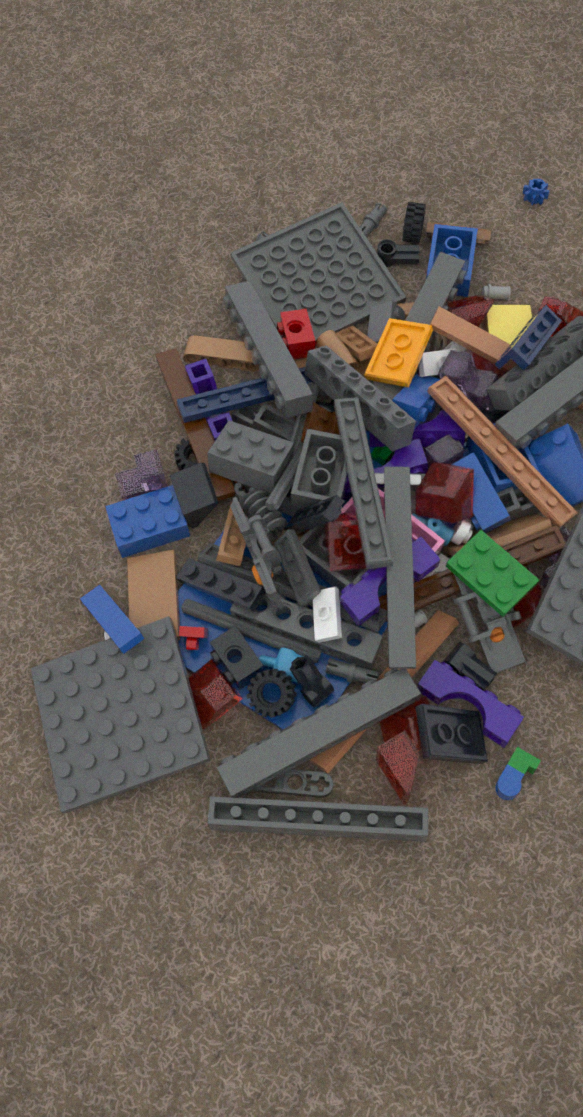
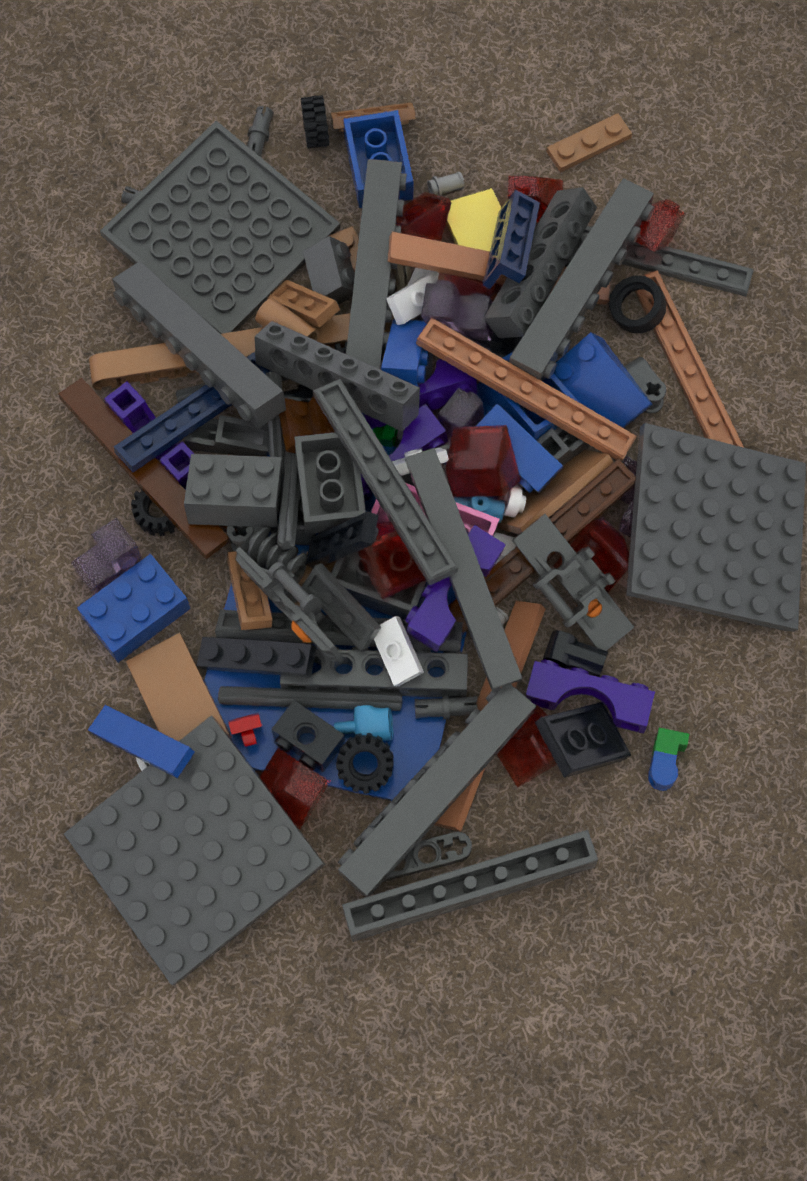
camera: 25 degrees left, 5 degrees up
(194, 493) = (181, 555): black slope -> none
(296, 332) = (227, 313): red brick -> none
(313, 684) = (409, 736): black piece -> none
(395, 253) = (309, 167): black piece -> none
(398, 352) = (364, 304): light orange tile -> none
(399, 762) = (539, 793): clear red slope -> none
(492, 573) = (567, 540): green plate -> none
(536, 191) = (448, 35): blue gear -> none

